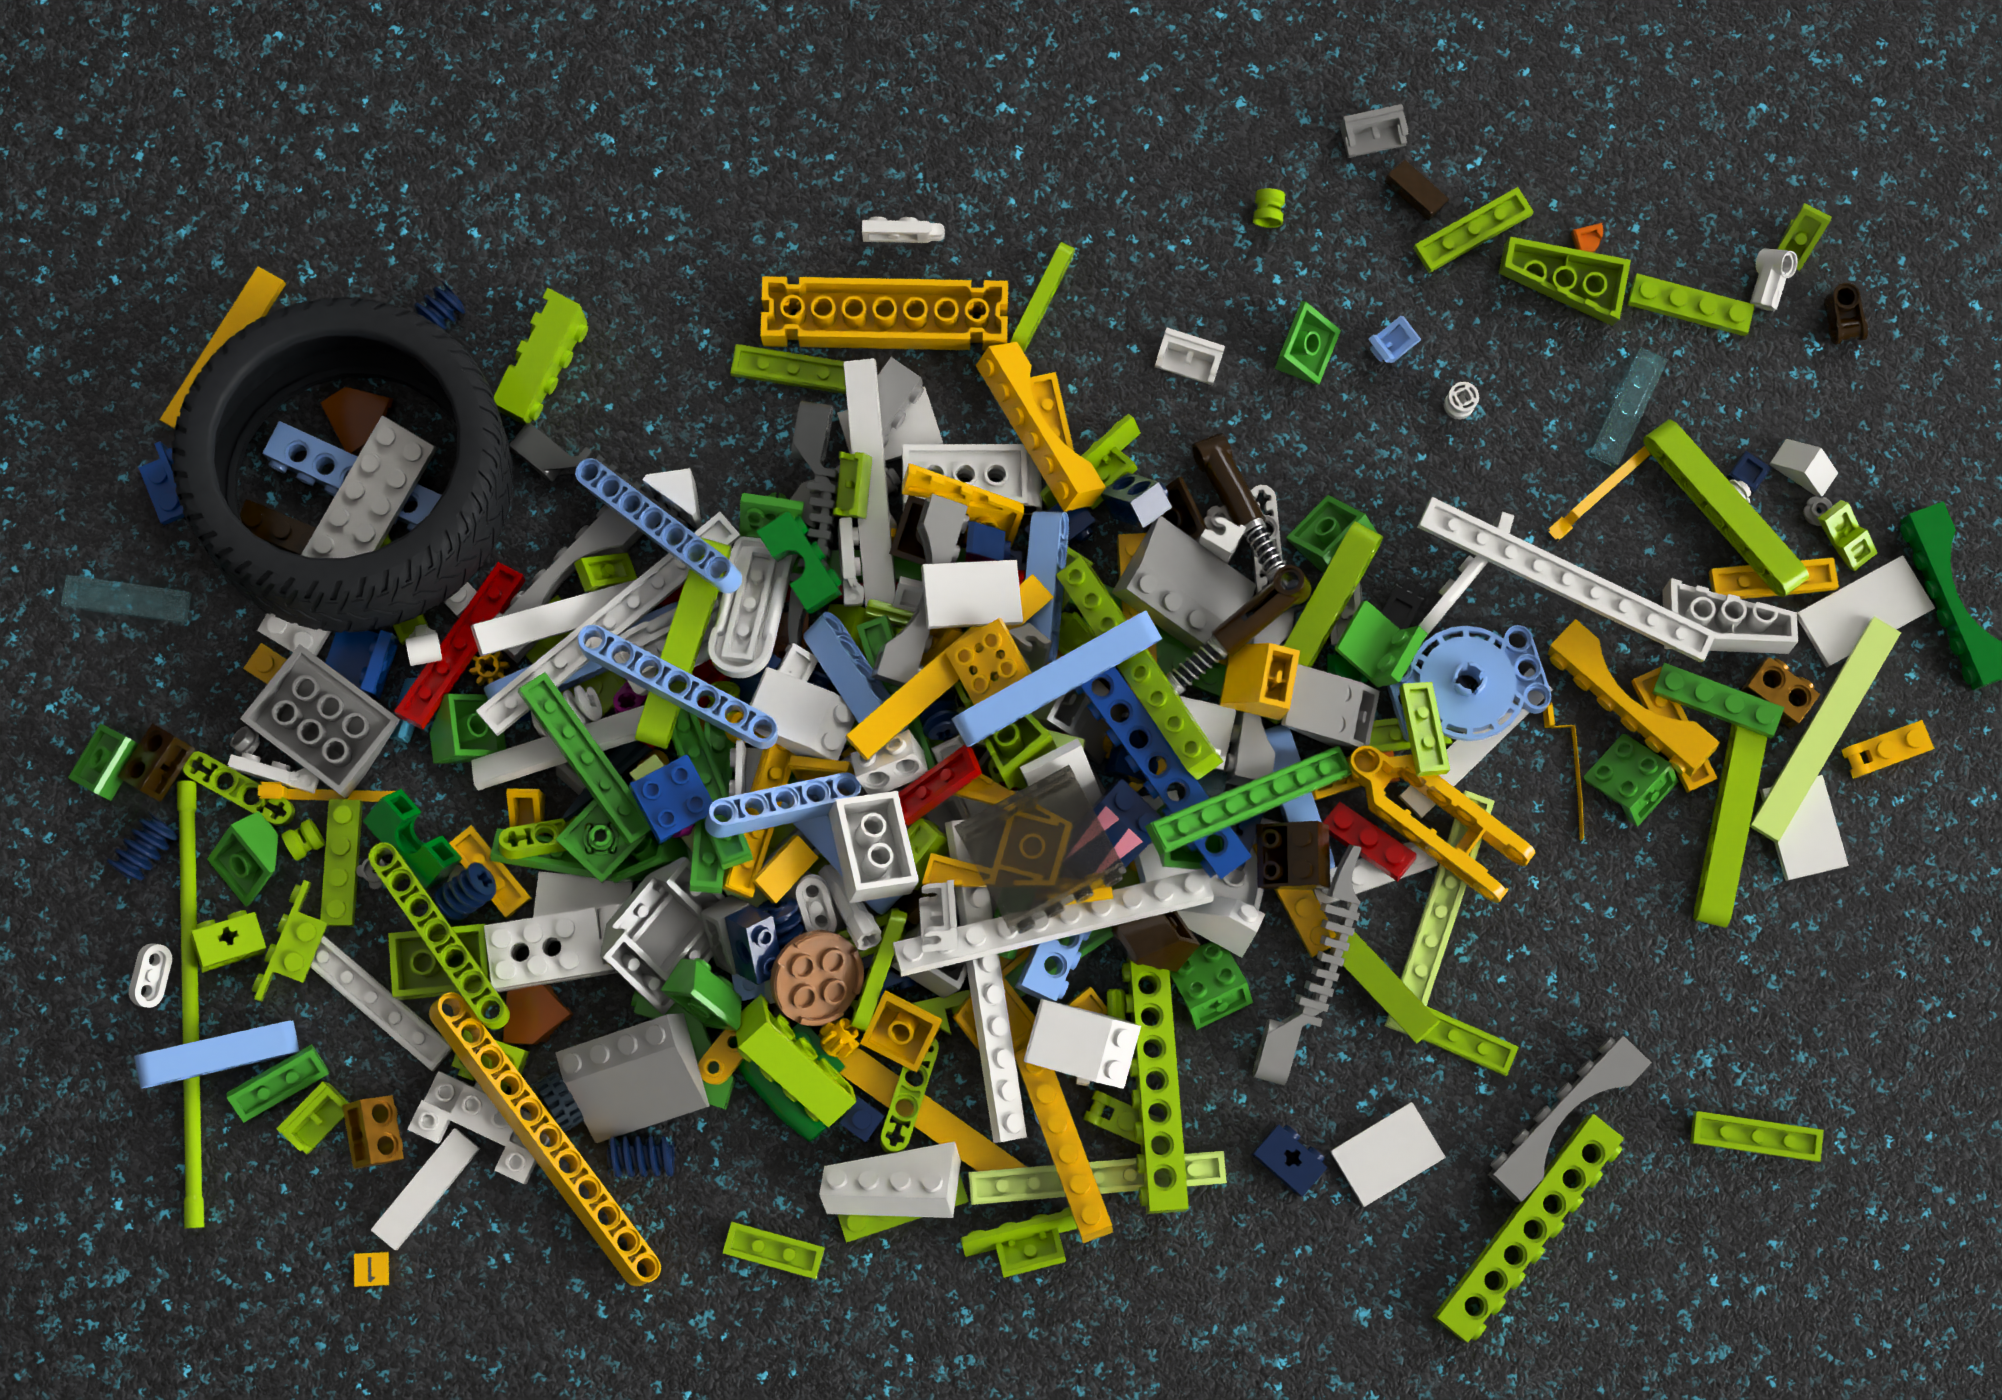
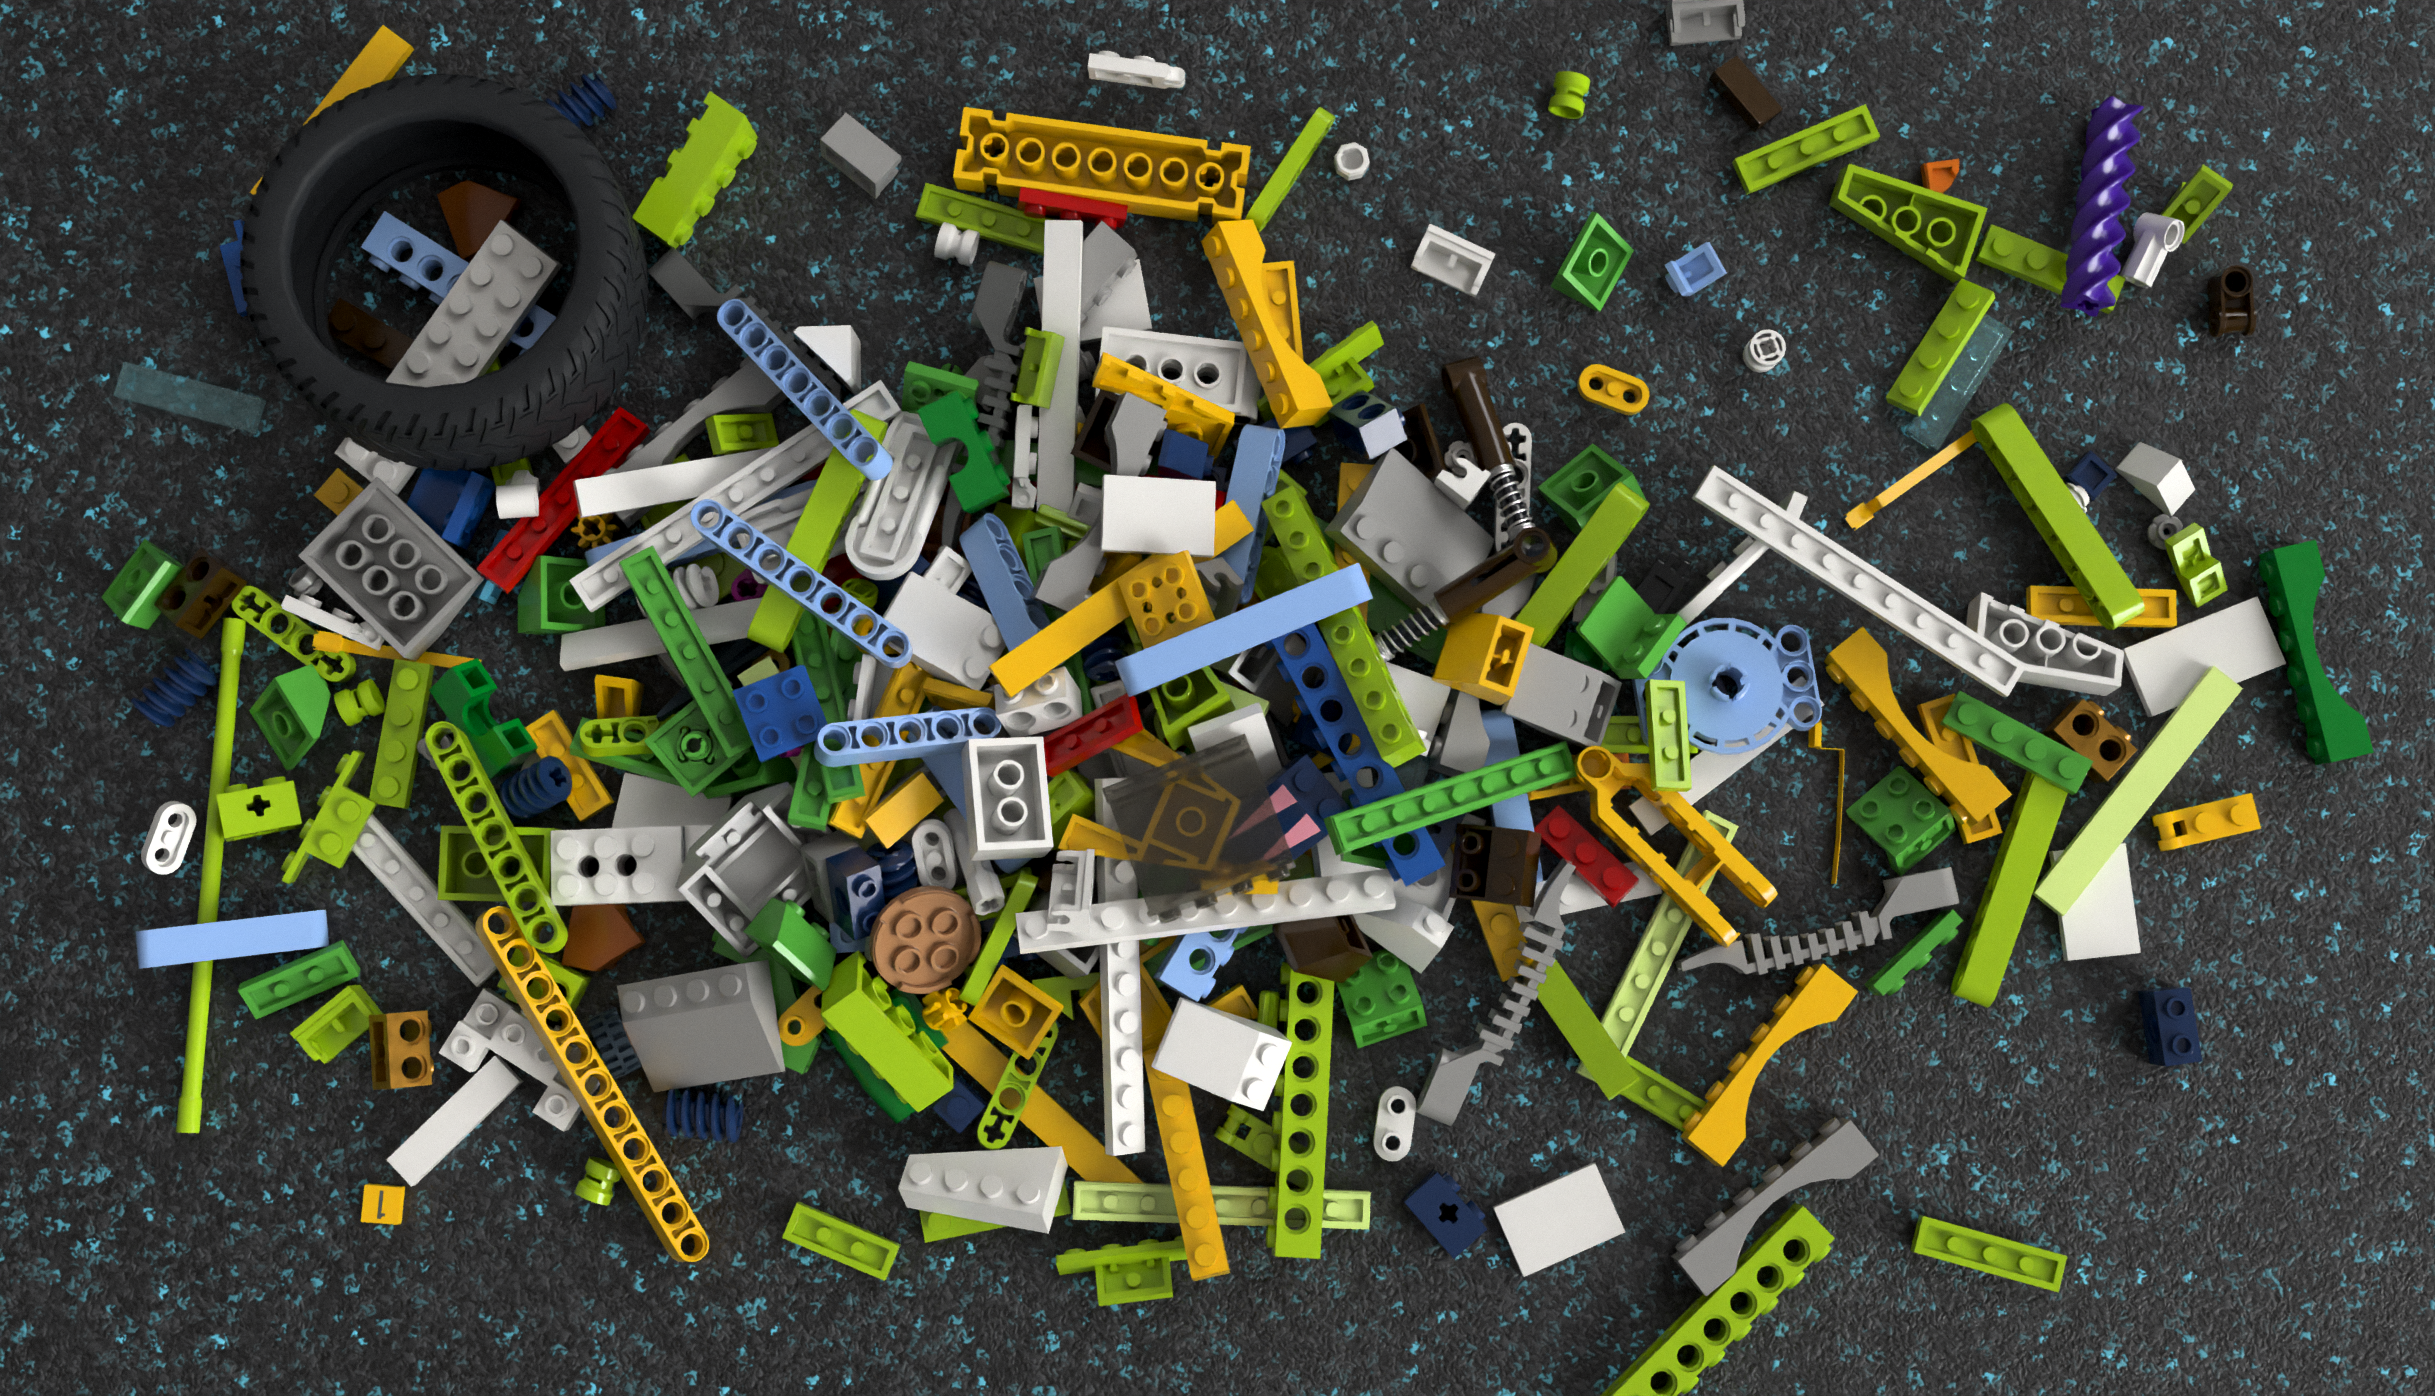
camera: 10 degrees right, 5 degrees up
(557, 1232) = (598, 1181): none -> lime wheel
(677, 327) = (860, 155): none -> light grey hinge
(765, 391) = (954, 243): none -> white wheel
(835, 349) = (1040, 203): none -> red plate
(1093, 284) = (1351, 161): none -> white tile
(1236, 1090) = (1394, 1124): none -> white plate
(1339, 444) = (1612, 388): none -> yellow plate
(1515, 1052) = (1721, 1123): none -> yellow arch
(1608, 380) = (1940, 347): none -> lime plate
(1641, 843) = (1901, 897): none -> light grey piece
(1658, 890) = (1914, 953): none -> bright green plate
(1722, 247) = (2098, 204): none -> dark purple piece
(1881, 923) = (2170, 1026): none -> dark blue brick

